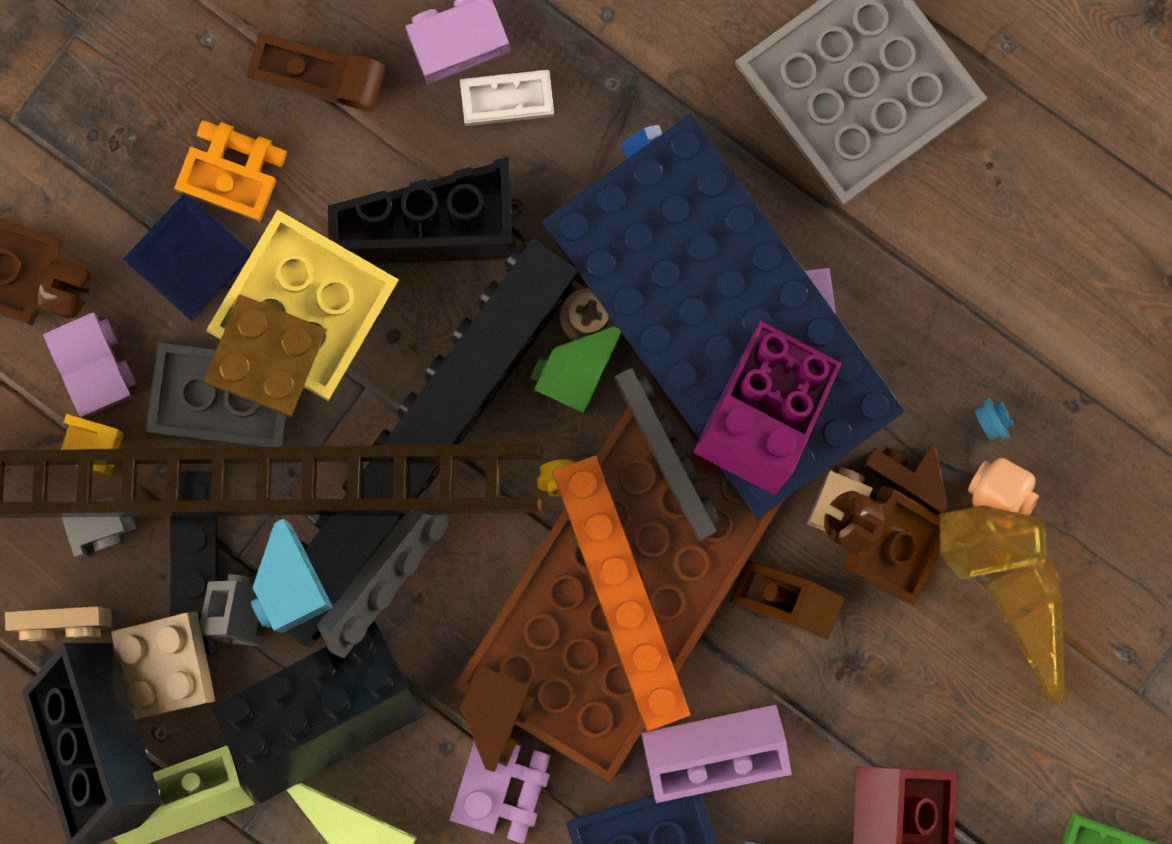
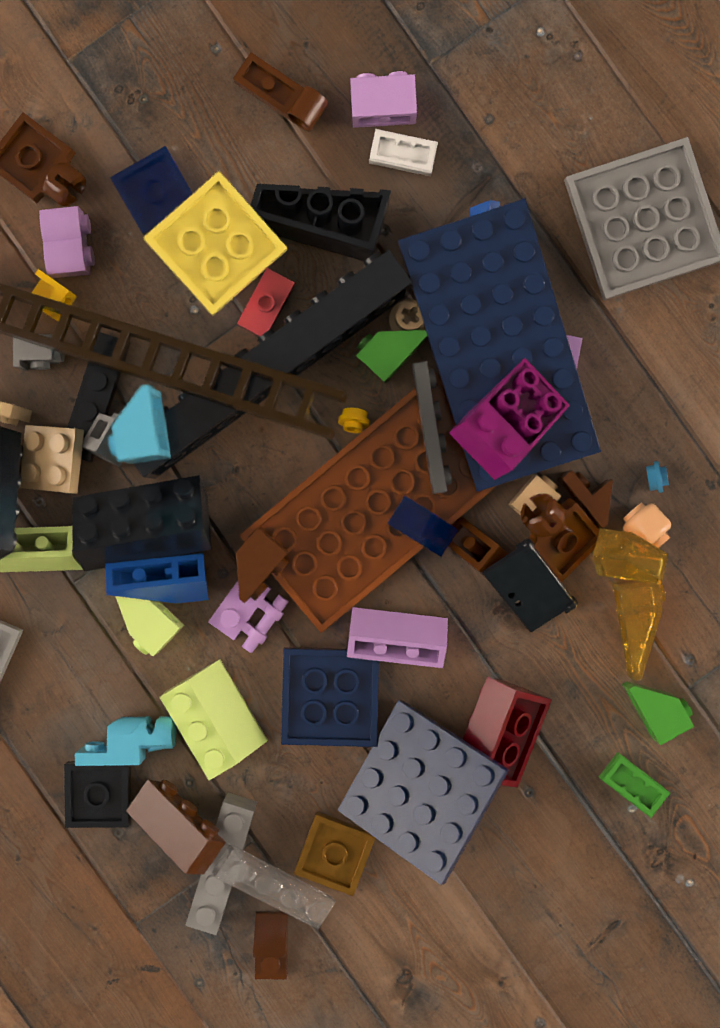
camera: 25 degrees right, 5 degrees up
(195, 410) = (144, 292): dark grey plate -> none
(225, 183) = (196, 149): light orange plate -> none
(265, 355) = (177, 268): pearl gold plate -> none
(368, 780) = (159, 579): none -> blue slope
(380, 579) = (210, 449): dark grey plate -> none
(387, 360) = (266, 303): none -> coral plate
(621, 593) = (369, 510): orange plate -> none
(699, 589) = (422, 526): none -> clear blue slope
(866, 614) = (528, 578): none -> black door
(1107, 737) = (660, 712): none -> bright green slope

